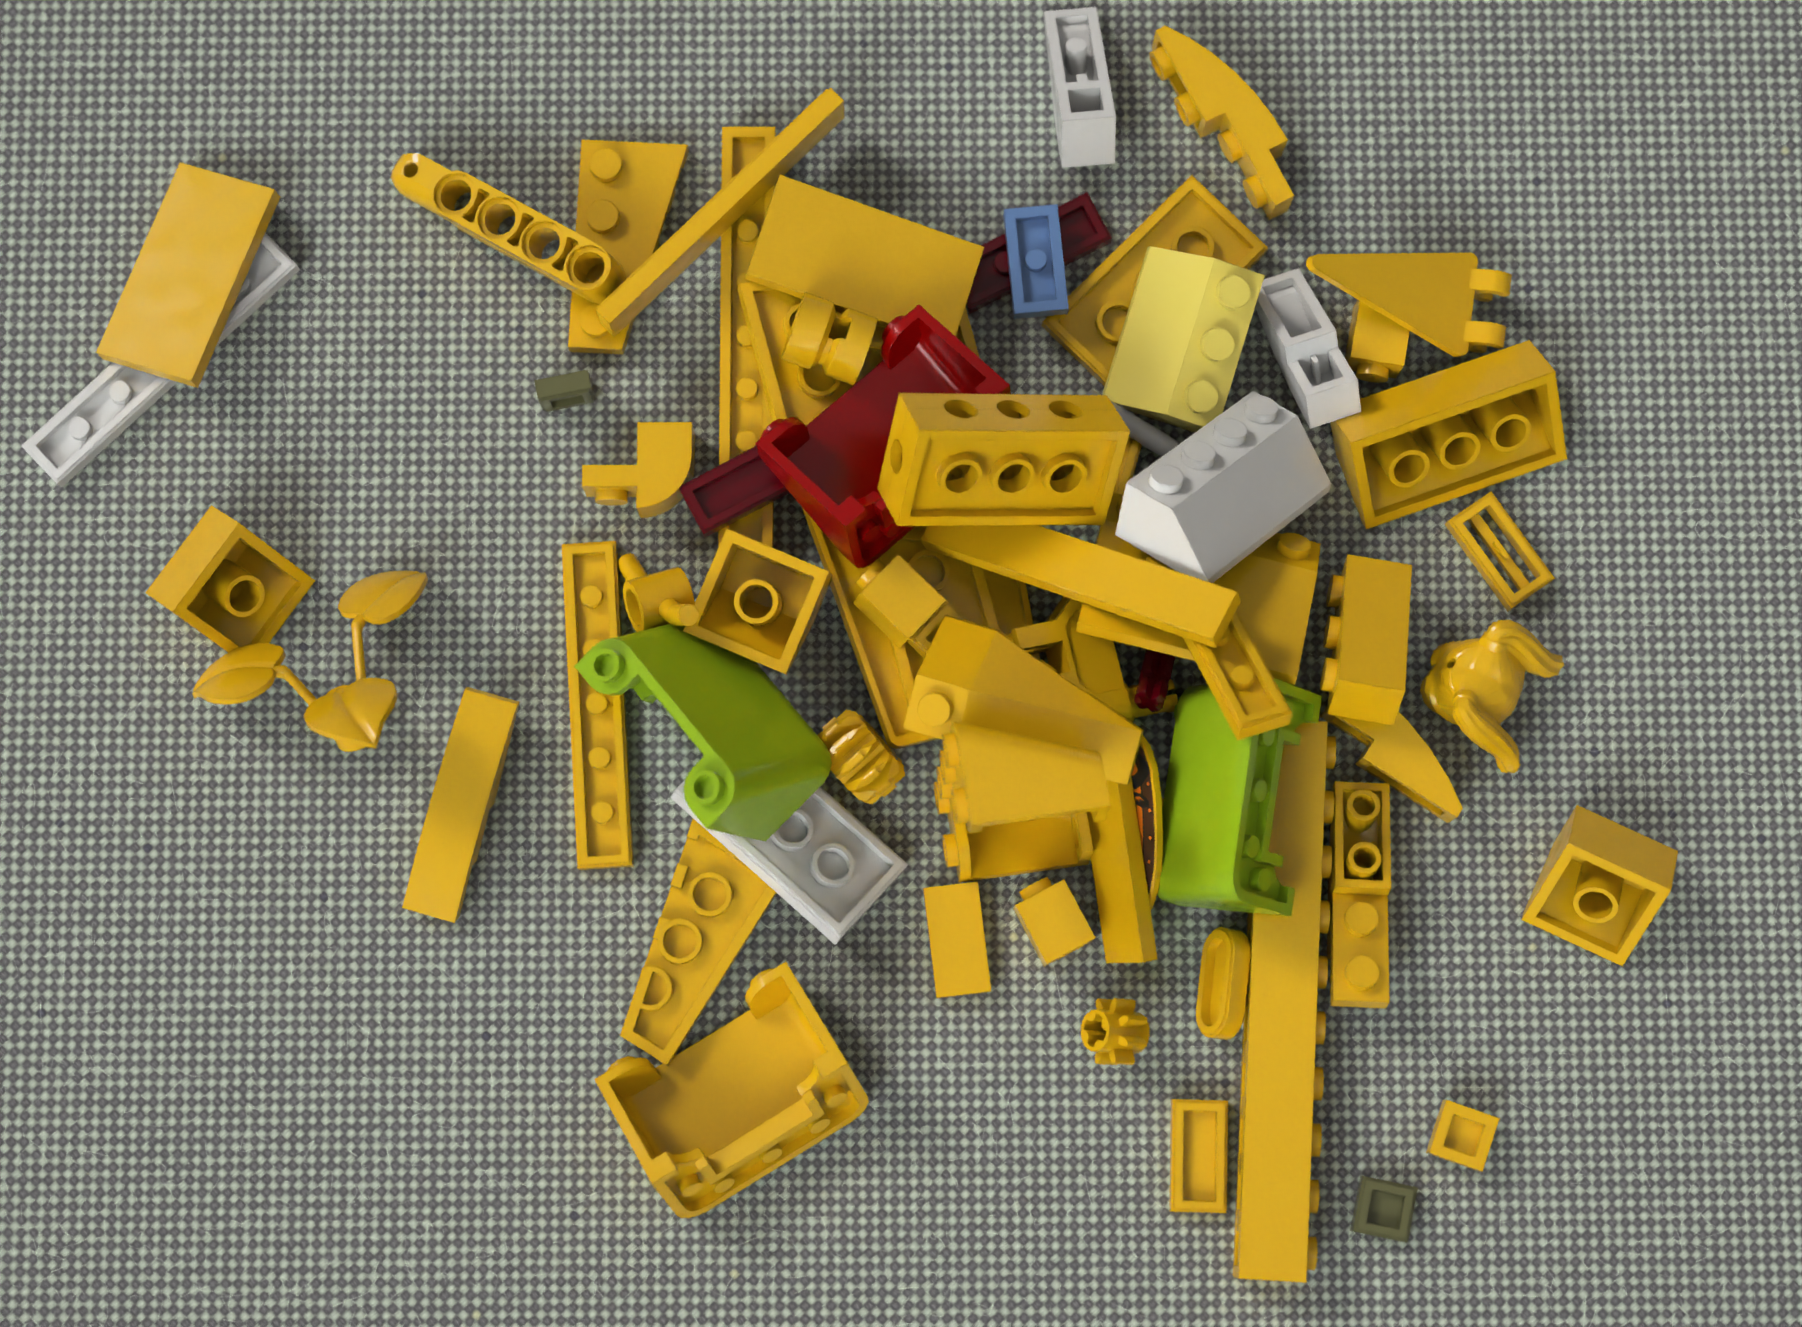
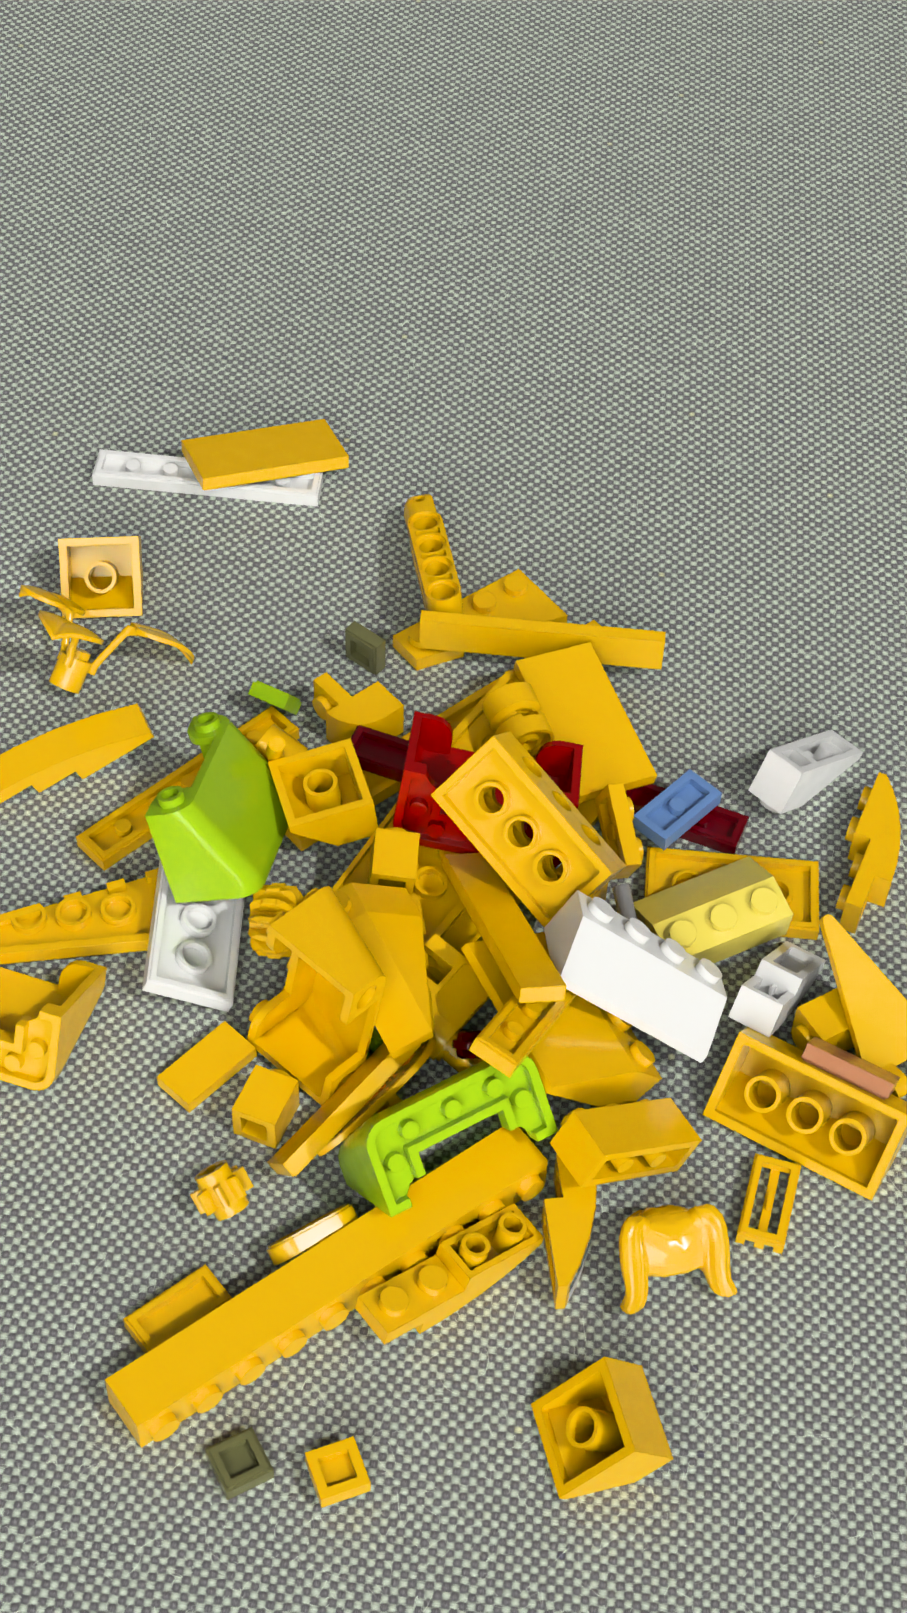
camera: 50 degrees right, 30 degrees down
(559, 535) = (275, 697): none -> lime tile
(1028, 348) = (615, 819): none -> yellow plate
(1456, 371) = (850, 1068): none -> nougat tile

